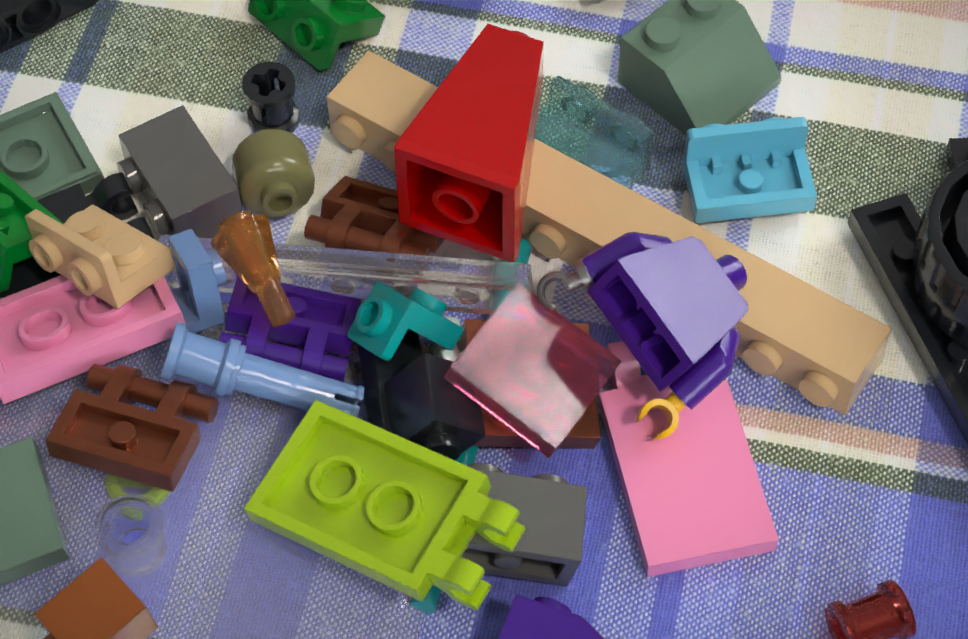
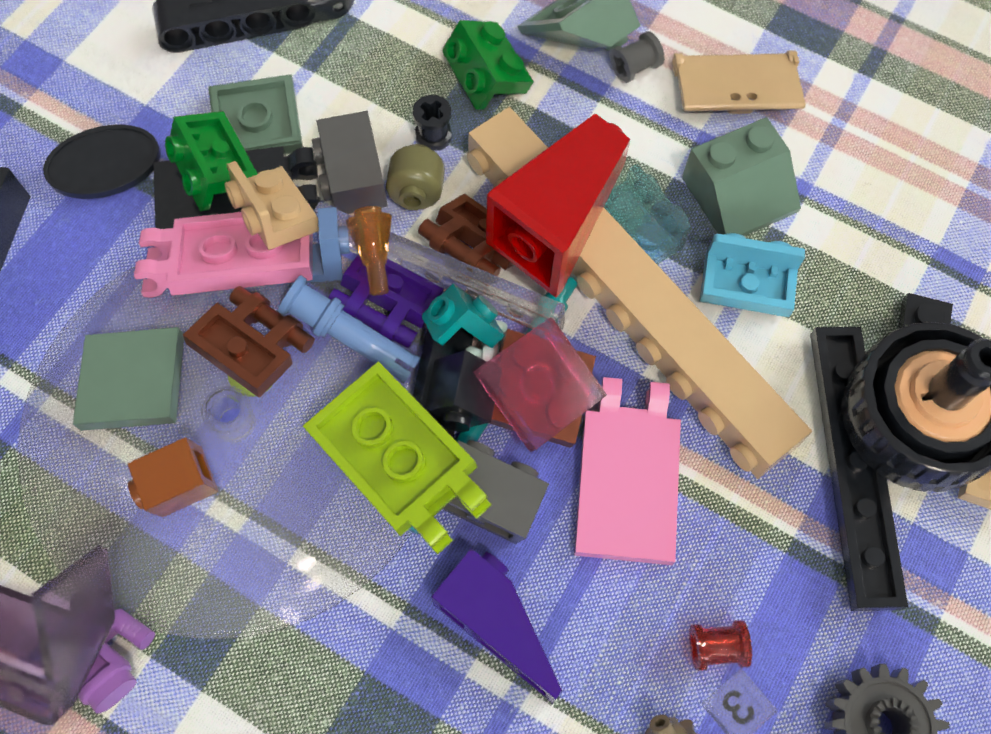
camera: 15 degrees right, 10 degrees up
(669, 309) = (651, 371): dark purple torso -> none

